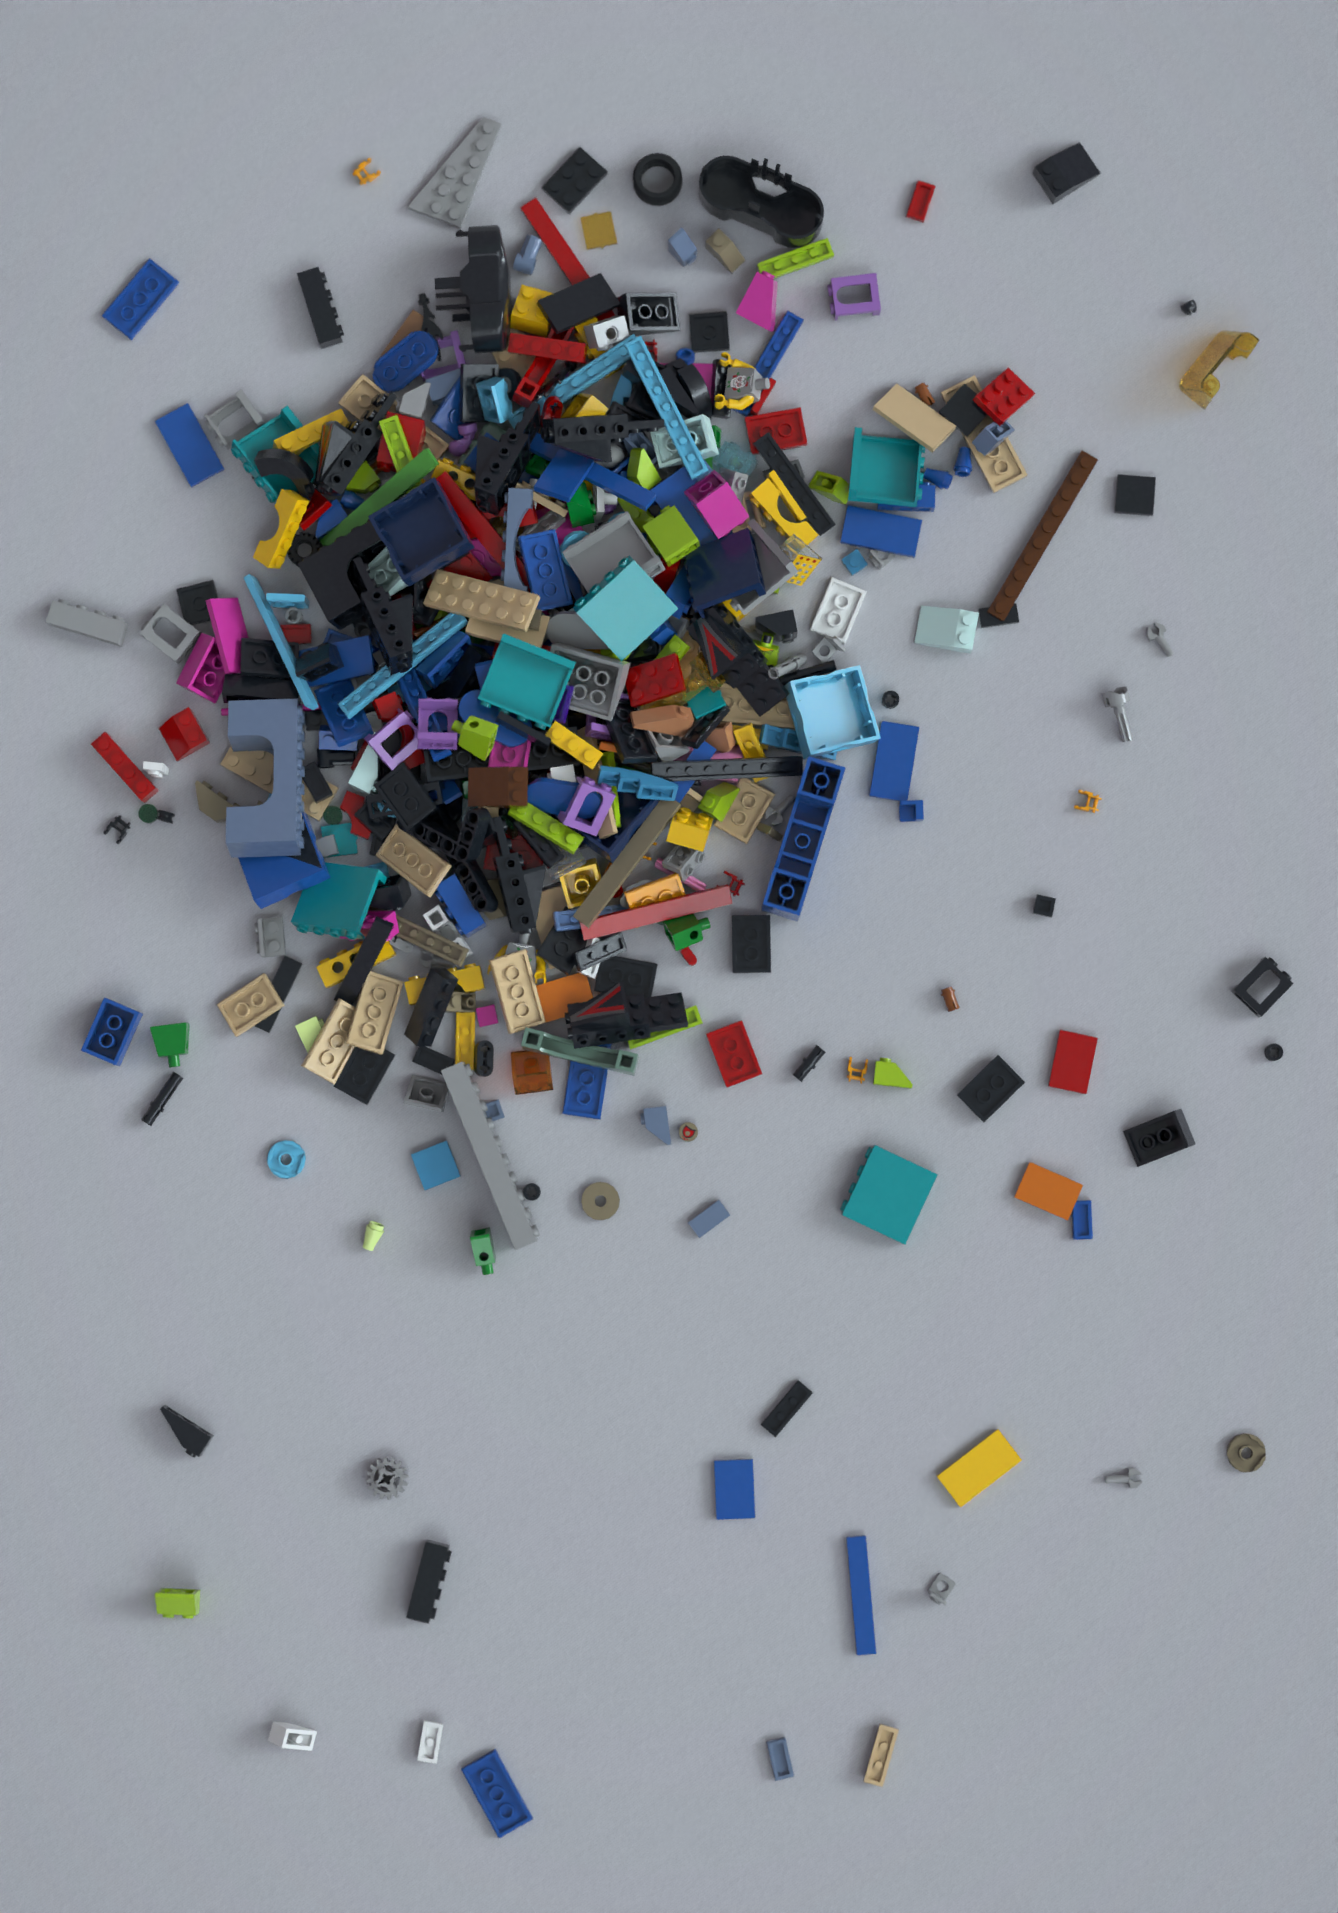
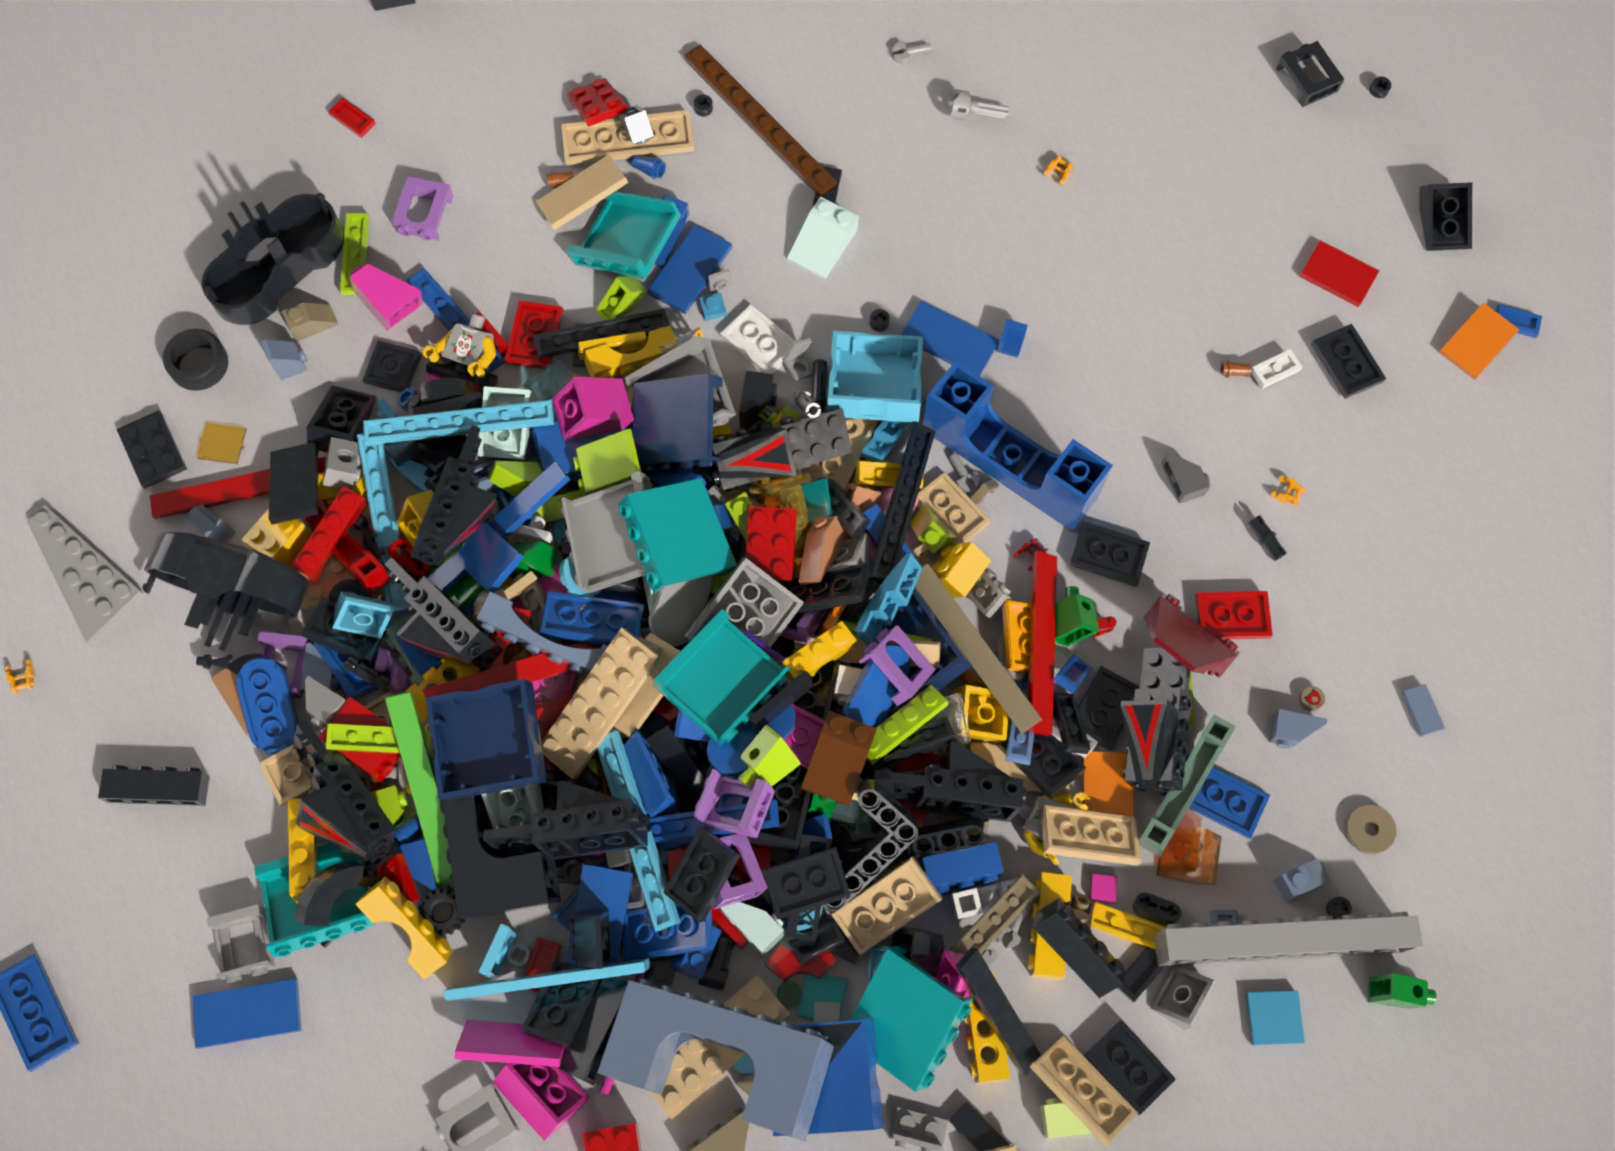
camera: 80 degrees left, 15 degrees down
(193, 601) = (450, 1077): black tile -> none
(316, 783) = (747, 997): black tile -> none
(372, 1235) = (1346, 1131): yellowish green cone -> none
(374, 1013) = (1063, 1027): tan tile -> none
(381, 719) = (701, 874): none -> black tile
(453, 421) = (366, 673): none -> black axle
(543, 1159) = (1301, 880): none -> sand blue slope
(640, 943) = (1072, 674): none -> blue tile
(666, 346) = (385, 409): none -> dark azure plate
(687, 1017) = (1187, 639): none -> dark red wedge
(690, 881) = (1017, 593): bright pink axle -> none
(836, 986) = (1185, 478): none -> dark grey slope
(888, 1194) = (1444, 503): teal panel -> none
(890, 1074) = (1305, 457): lime slope -> none
(939, 478) = (658, 189): blue cone -> none
(962, 1031) = (1276, 369): none -> white plate
(963, 411) = (595, 142): black tile -> none
(1044, 488) = (706, 111): none -> black bush
(1044, 906) = (1160, 244): black plate -> none
(1135, 495) = (751, 25): black tile -> none

